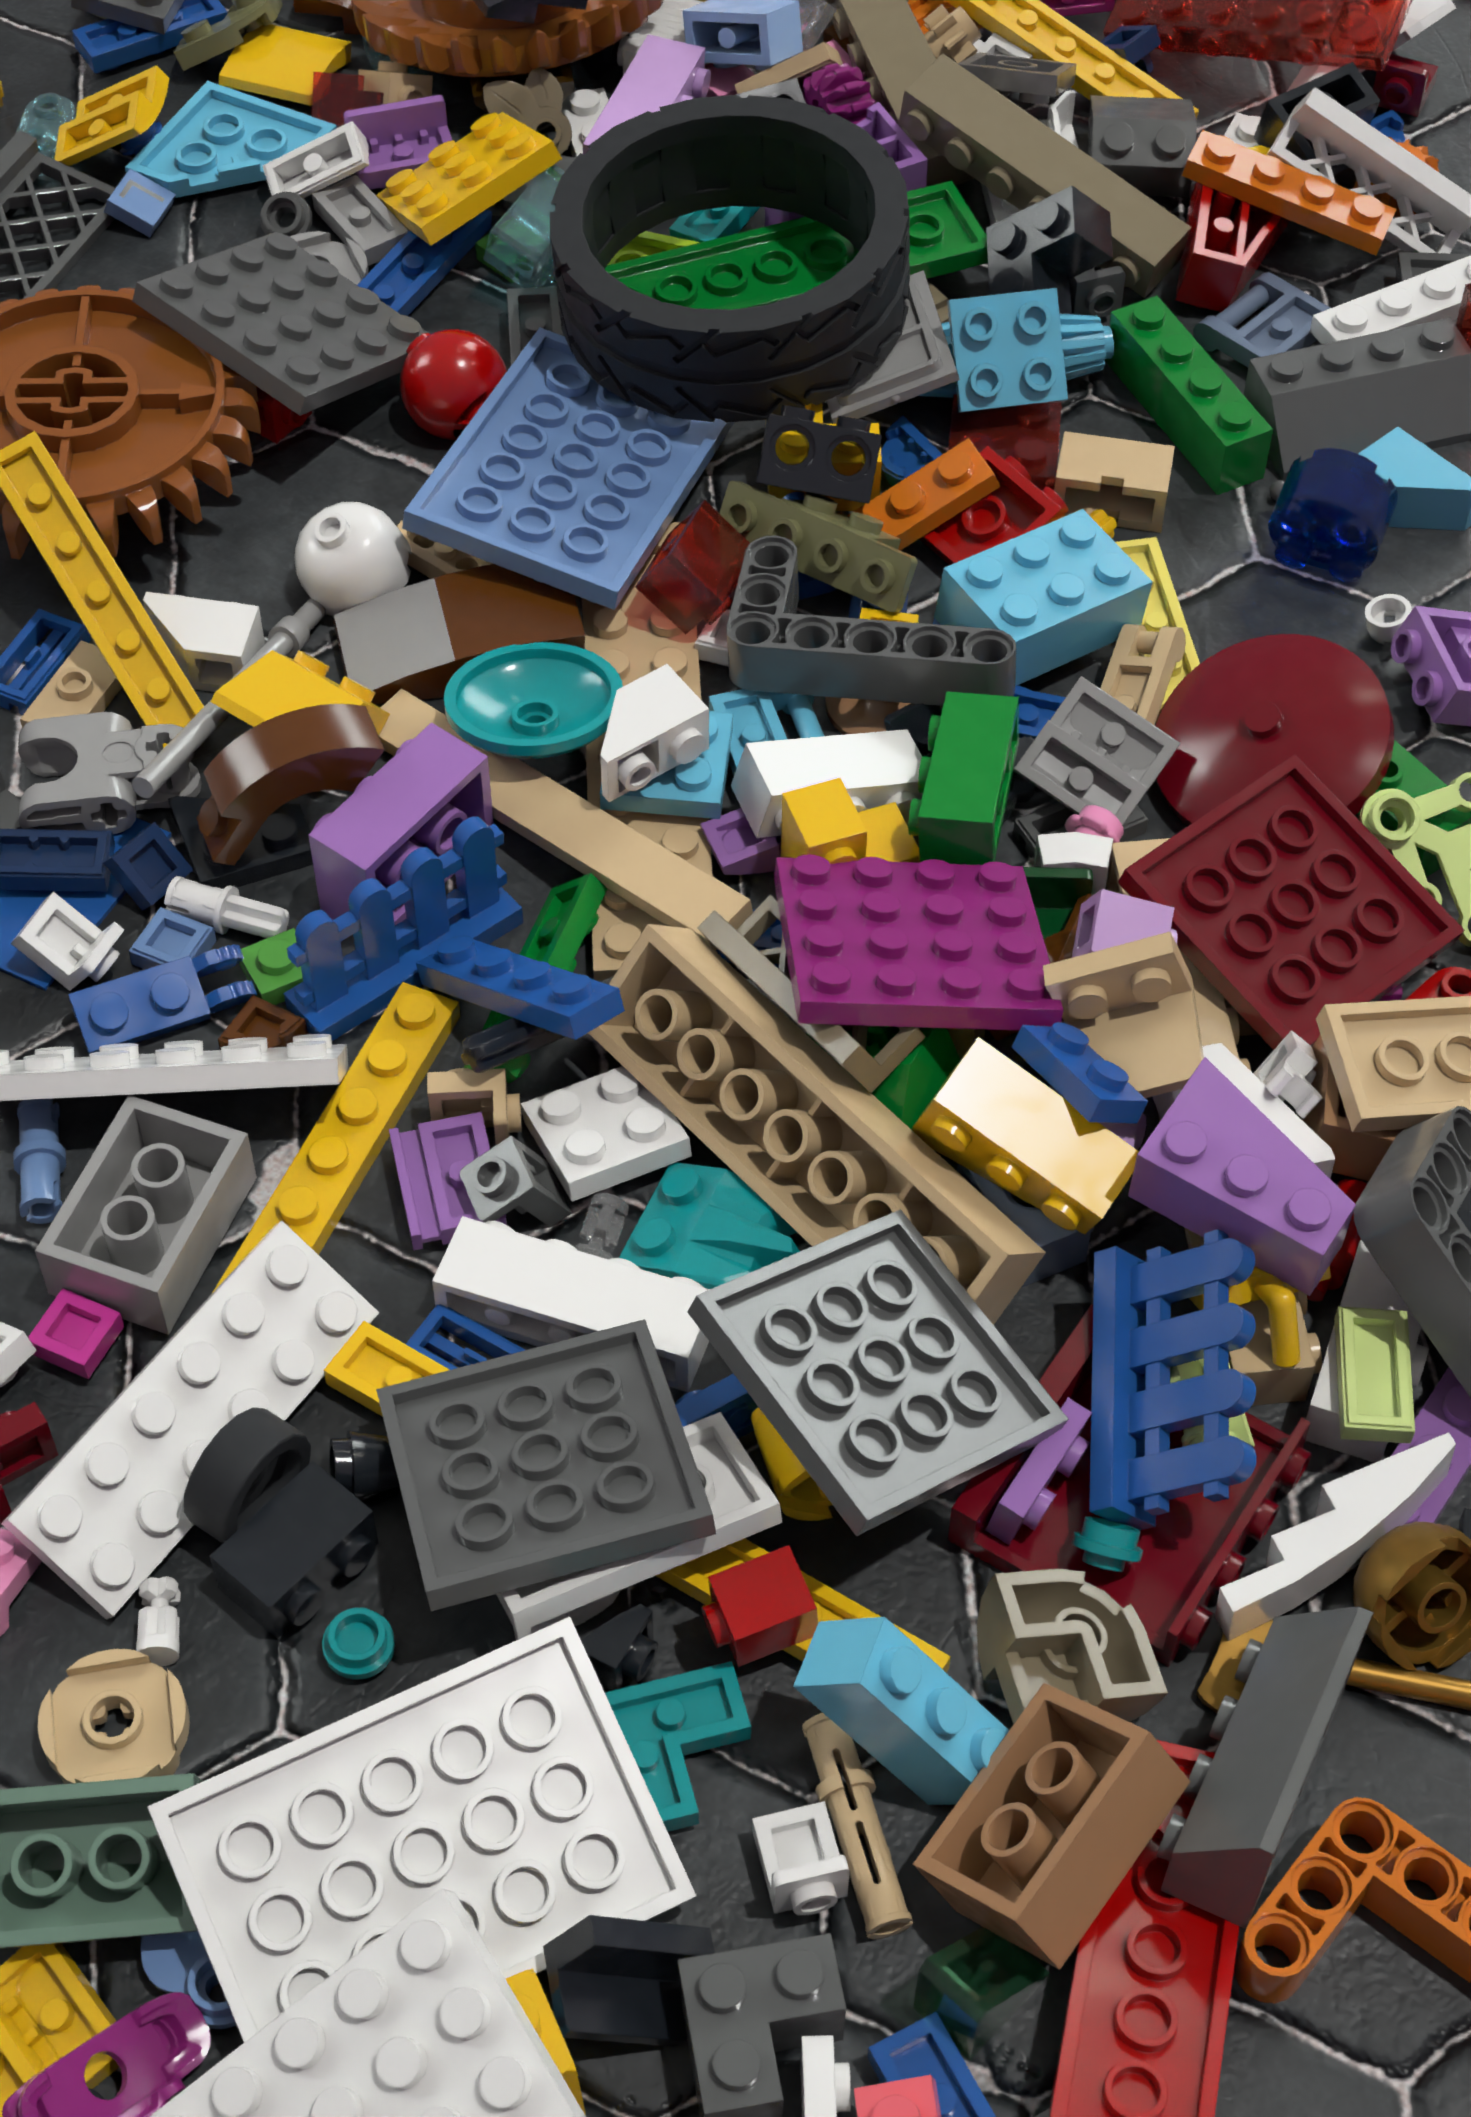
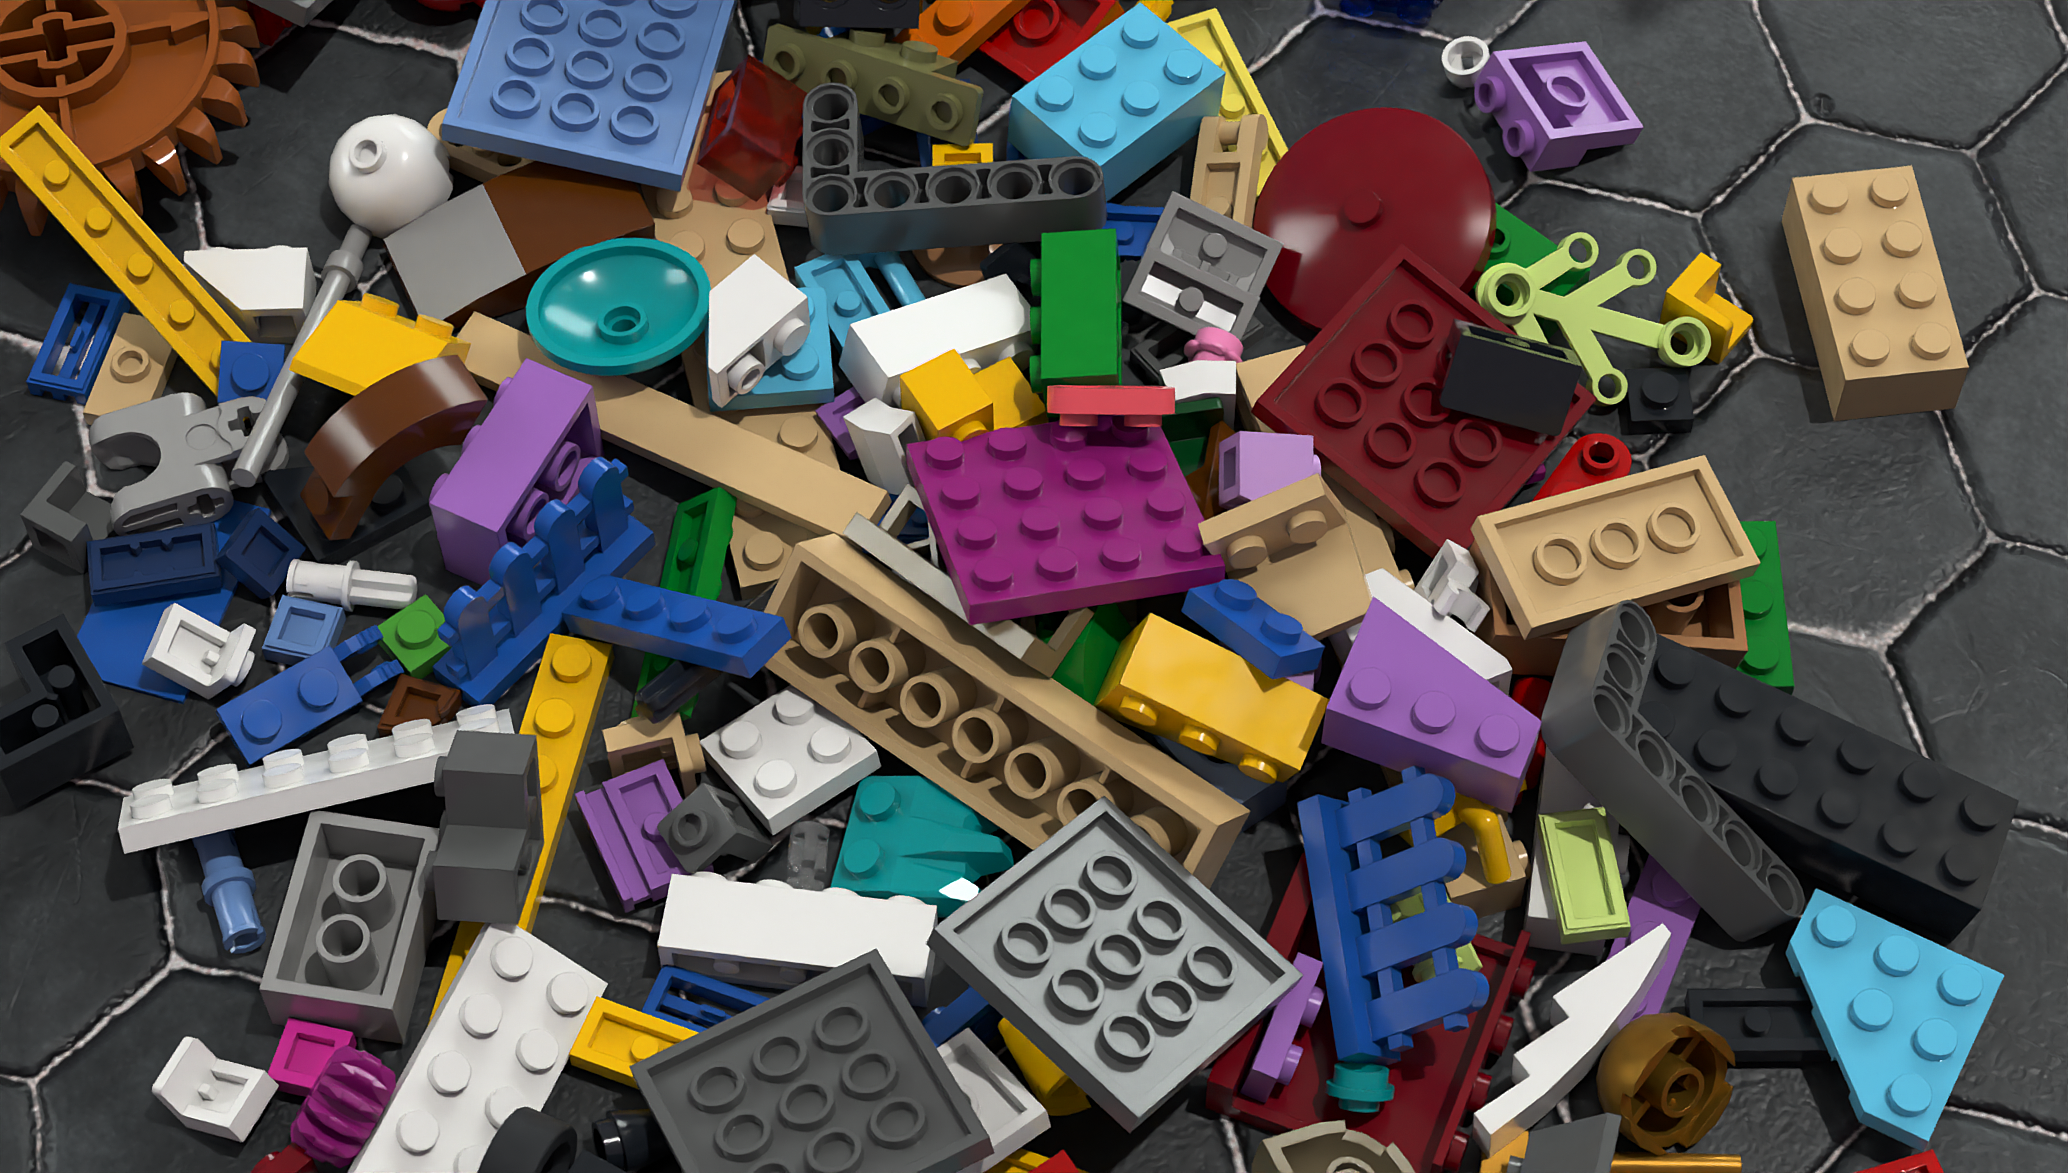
camera: 10 degrees left, 5 degrees up
(87, 1376) = (343, 1106): none -> magenta gear
(176, 699) = (248, 369): none -> blue plate
(295, 1136) = (489, 827): none -> dark grey brick
(753, 856) = (881, 442): none -> white piece
(953, 844) = (1139, 404): none -> coral plate
(1379, 893) = (1509, 378): none -> black panel

